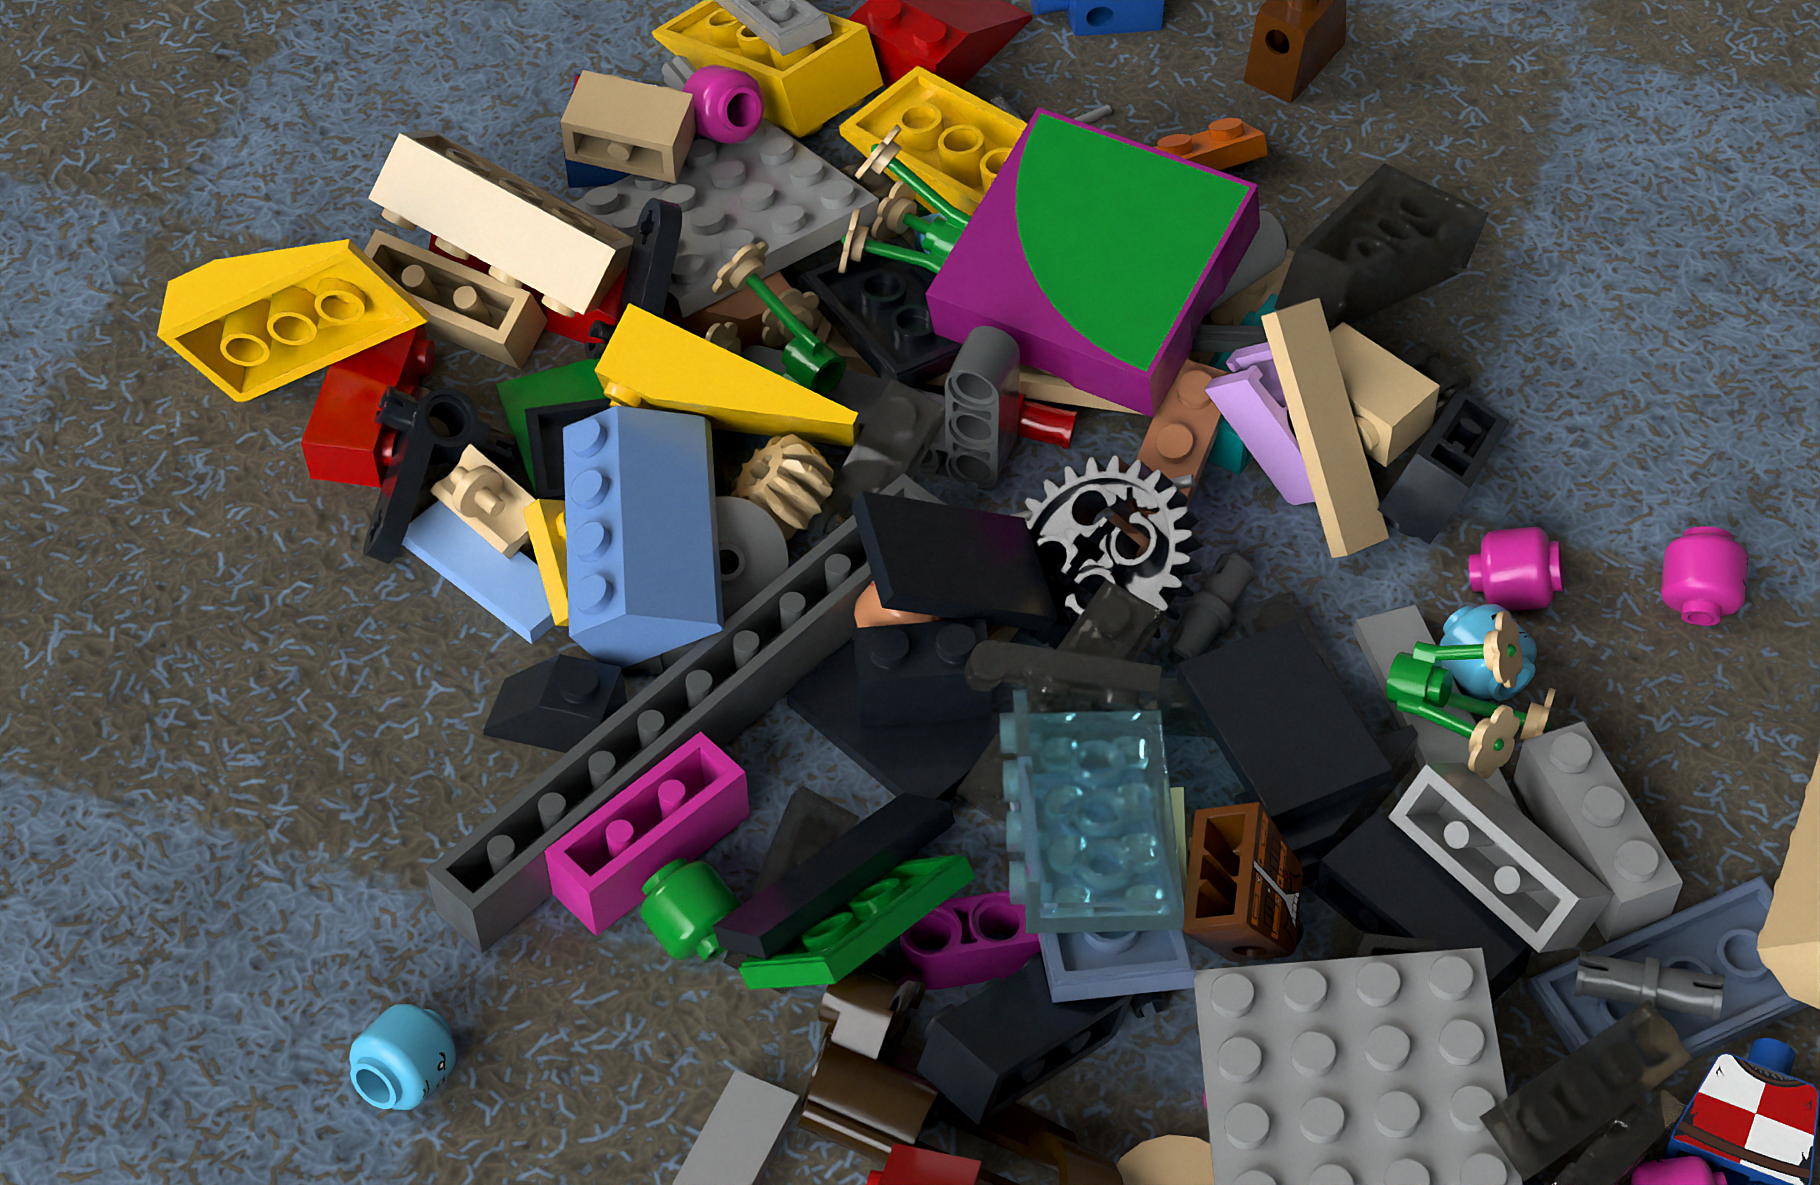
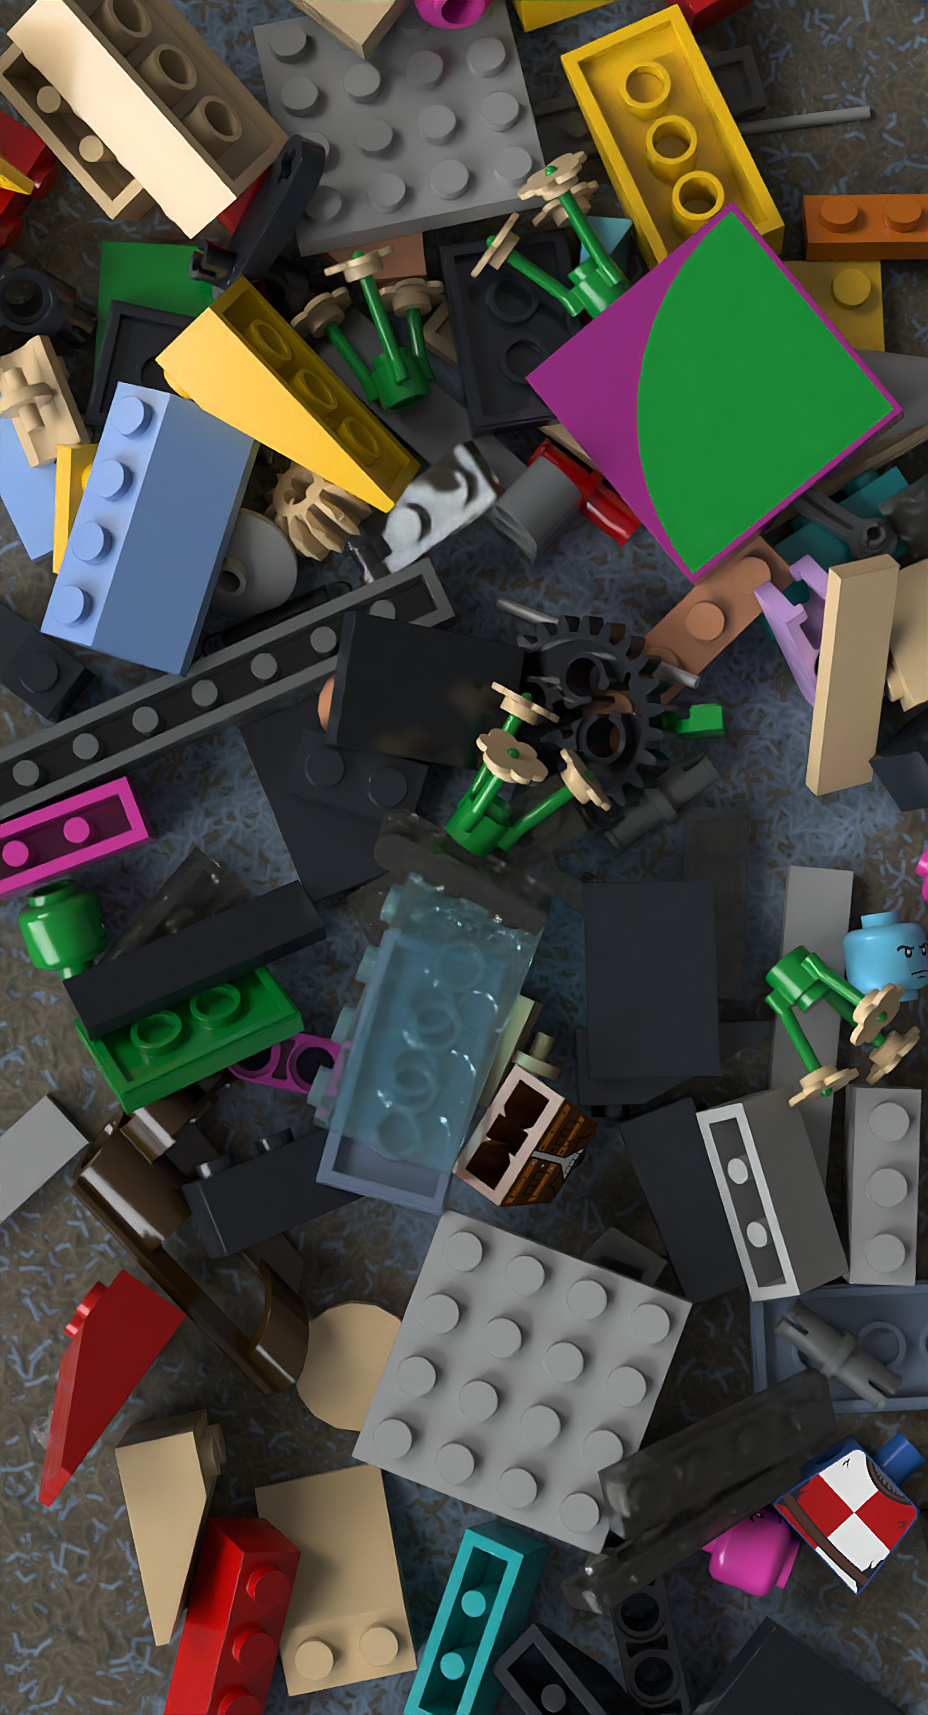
camera: 20 degrees right, 35 degrees up
(1058, 622) = (483, 815): none -> plant
(1217, 520) = (705, 722): none -> green tile

